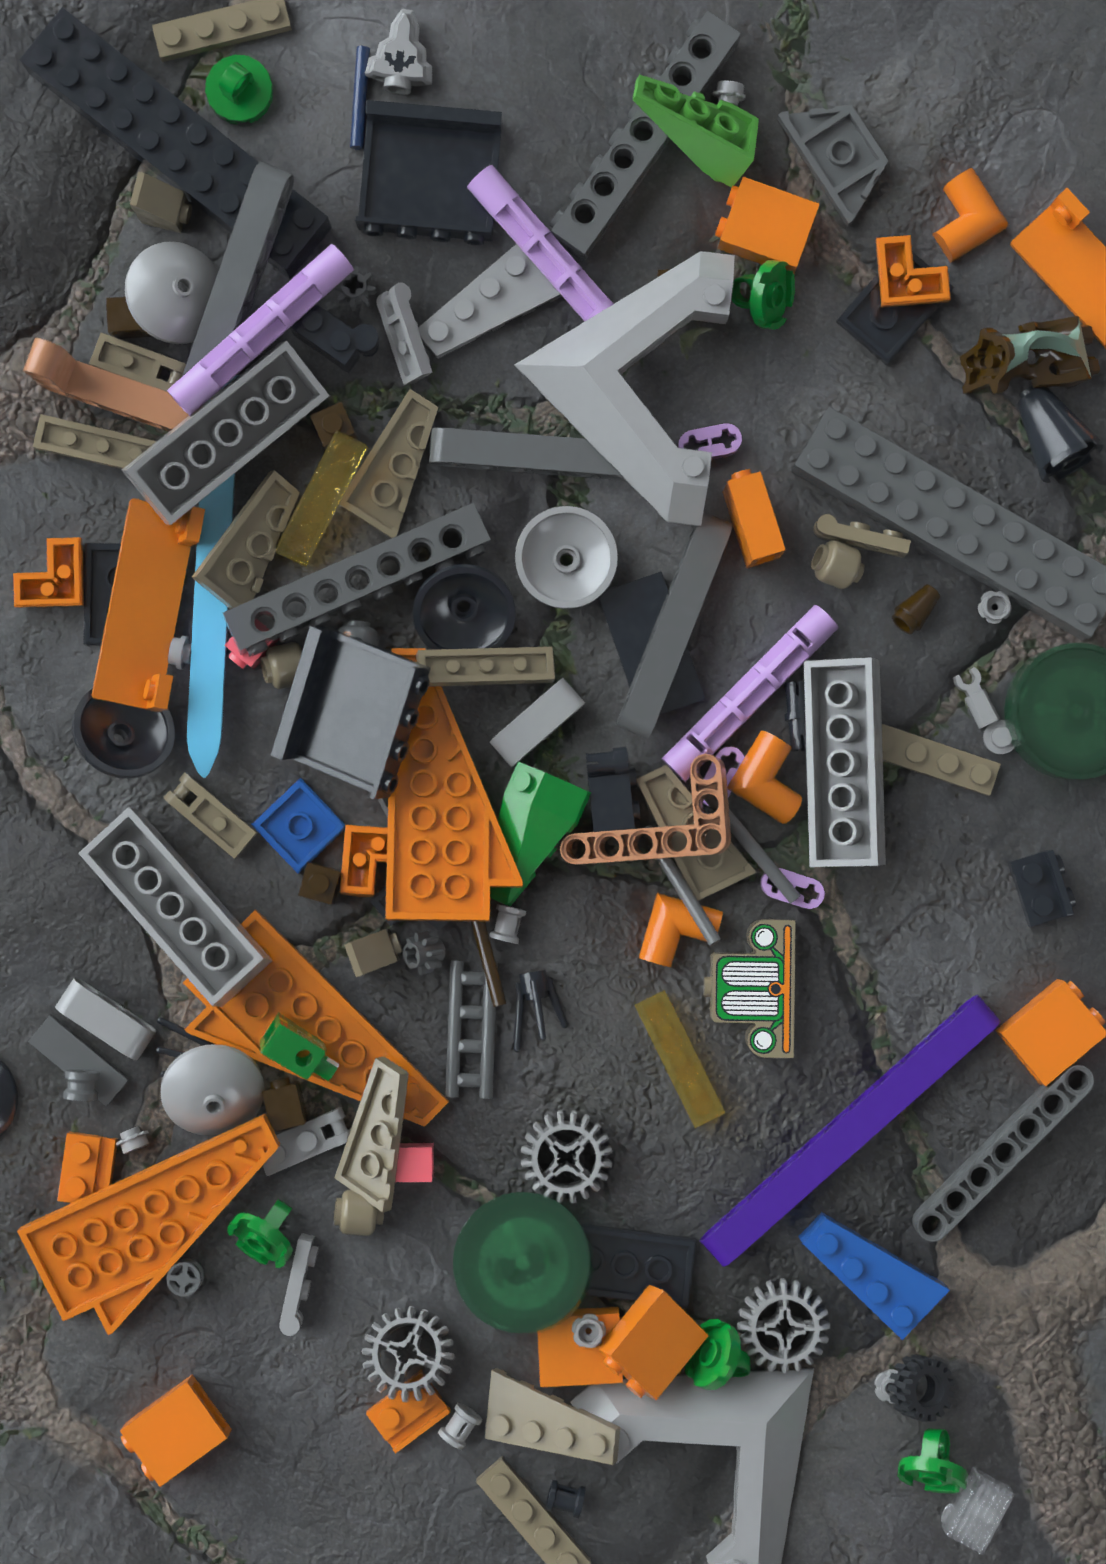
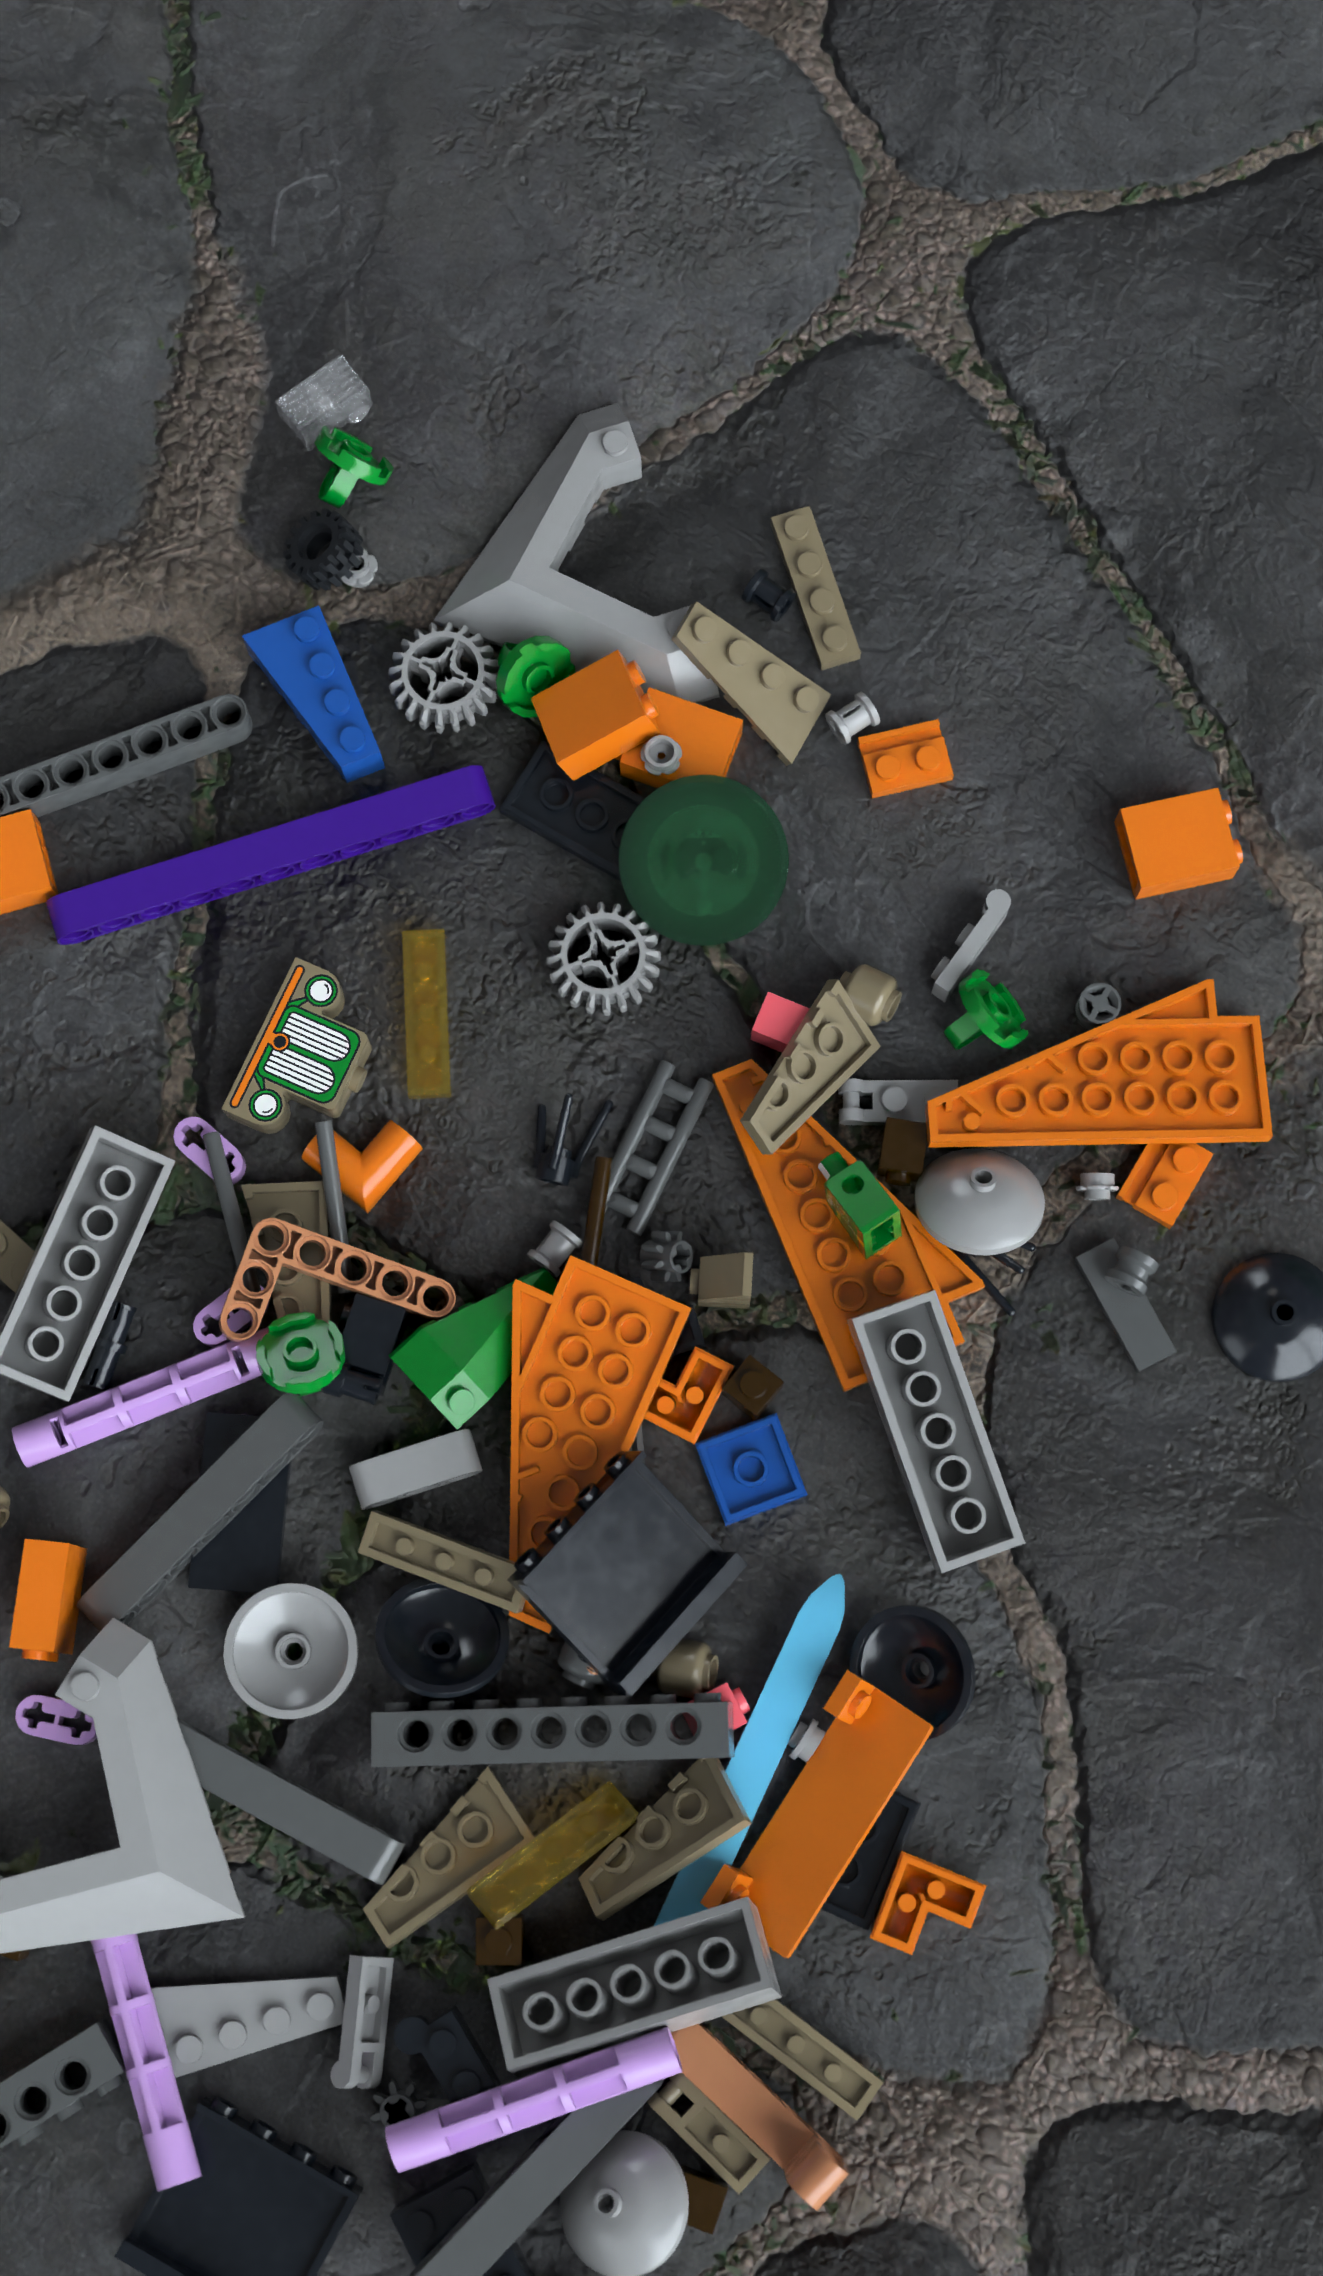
camera: 155 degrees left, 10 degrees down
(105, 1019) = (1073, 1338): light grey beam -> none
(211, 816) = (851, 1525): dark tan plate -> none
(414, 1338) = (850, 791): light grey gear -> none
(652, 766) = (300, 1353): none -> green tile
(757, 782) = (190, 1291): orange brick -> none

